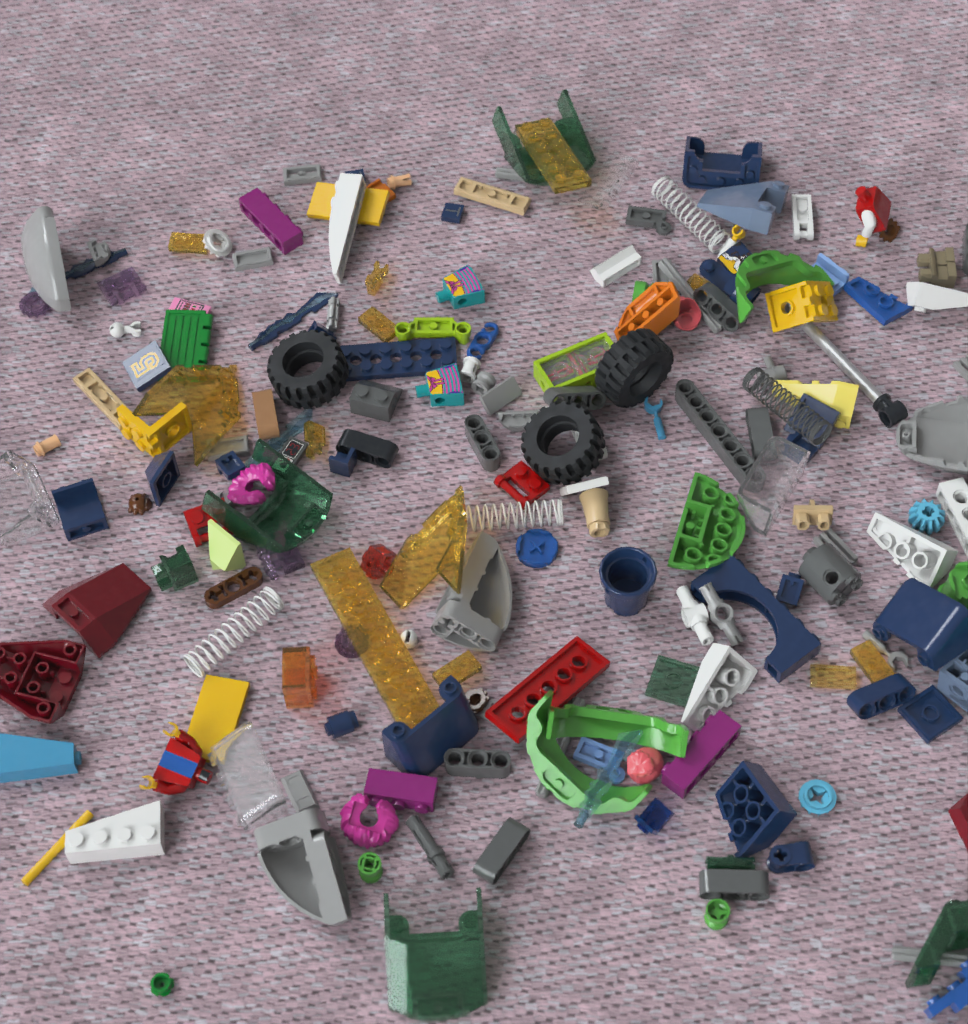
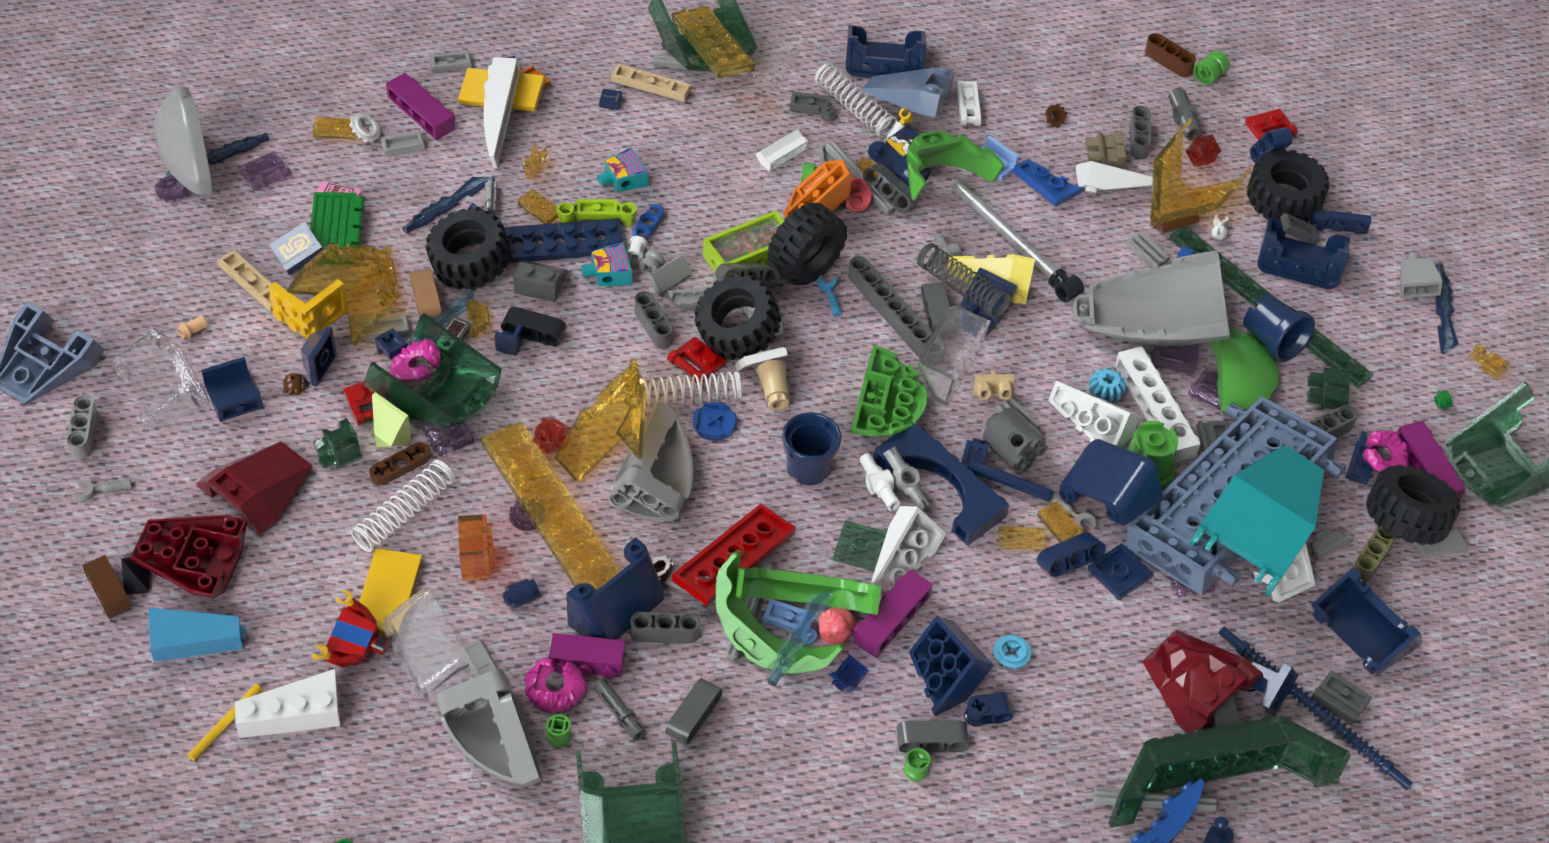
camera: 10 degrees left, 5 degrees down
(99, 251) = (238, 136): light grey tile -> none
(118, 329) = (263, 213): white arm -> none
(399, 181) = (553, 68): light nougat pin -> none
(413, 638) = (591, 509): white hinge -> none
(460, 668) = (646, 532): clear yellow plate -> none
(730, 862) = (927, 714): clear green pin -> none
(809, 303) = (980, 180): yellow bracket -> none
(824, 616) = (1010, 480): none -> dark blue axle
(873, 210) = (1040, 96): red torso -> none

